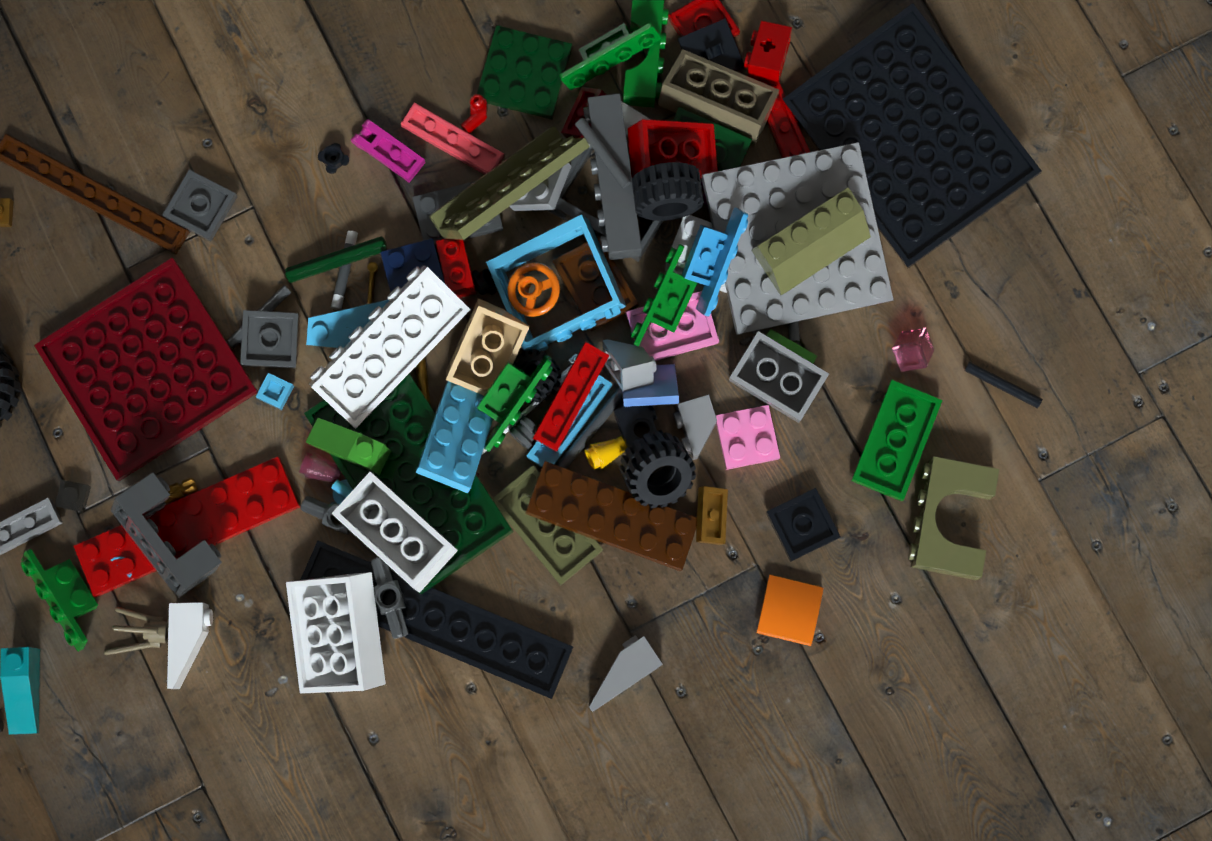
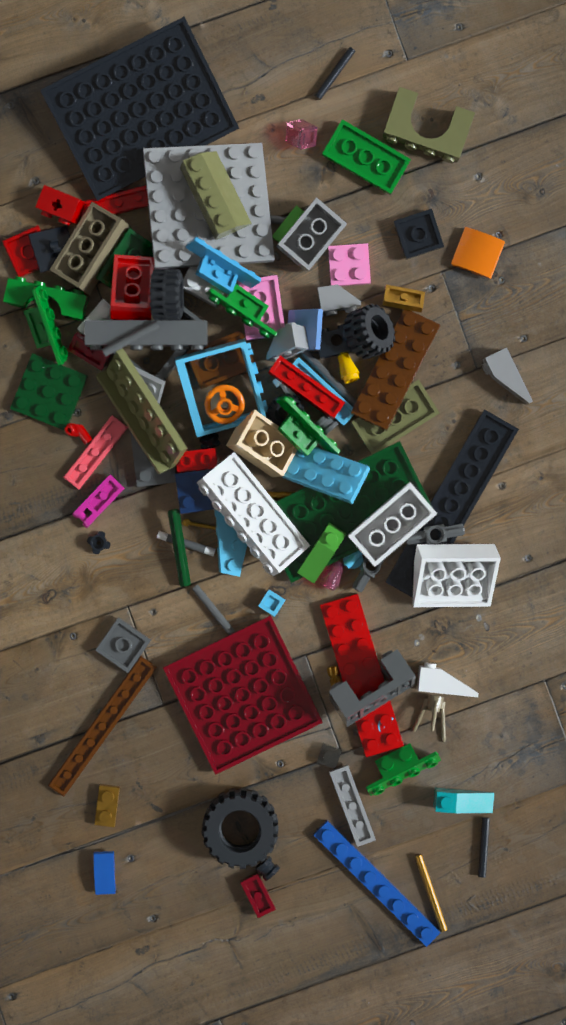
camera: 80 degrees left, 10 degrees up
(269, 339) = (233, 602): dark grey plate -> none

